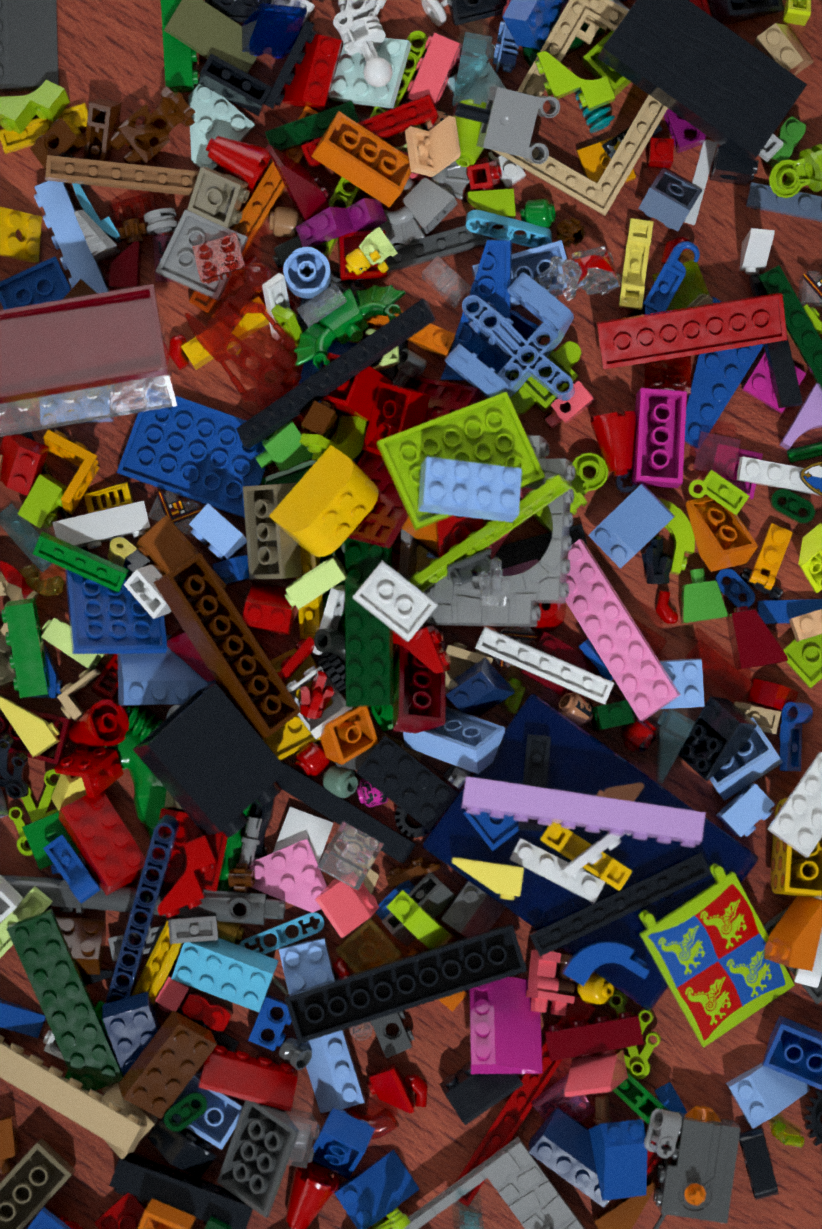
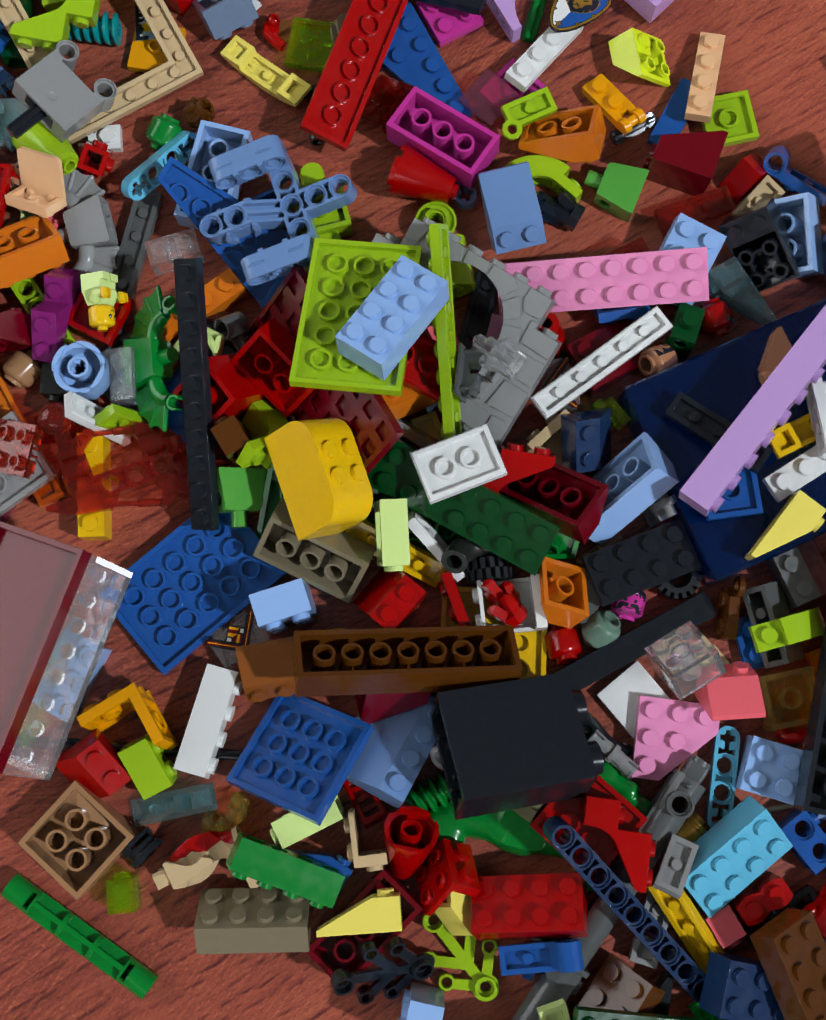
camera: 60 degrees left, 5 degrees down
(42, 833) = (484, 965): green piece -> none
(80, 561) = (229, 762): green plate -> none
(124, 487) = (179, 686): yellow slope -> none
(126, 555) = (256, 712): leg -> none
(144, 590) = (301, 711): white brick -> none
(175, 351) = (93, 548): red arm -> none
(233, 570) = (329, 613): blue slope -> none
(241, 877) = (646, 784): reddish brown gear -> none
(494, 201) = (126, 160): lime slope -> none
(579, 402) = (364, 197): coral torso -> none
(587, 270) = (243, 114): clear hips -> none
(663, 609) = (606, 229): red arm -> none
(669, 279) = (298, 47): blue plate -> none
(736, 586) = (623, 153): blue plate -> none
(792, 505) = (575, 61): dark green plate -> none

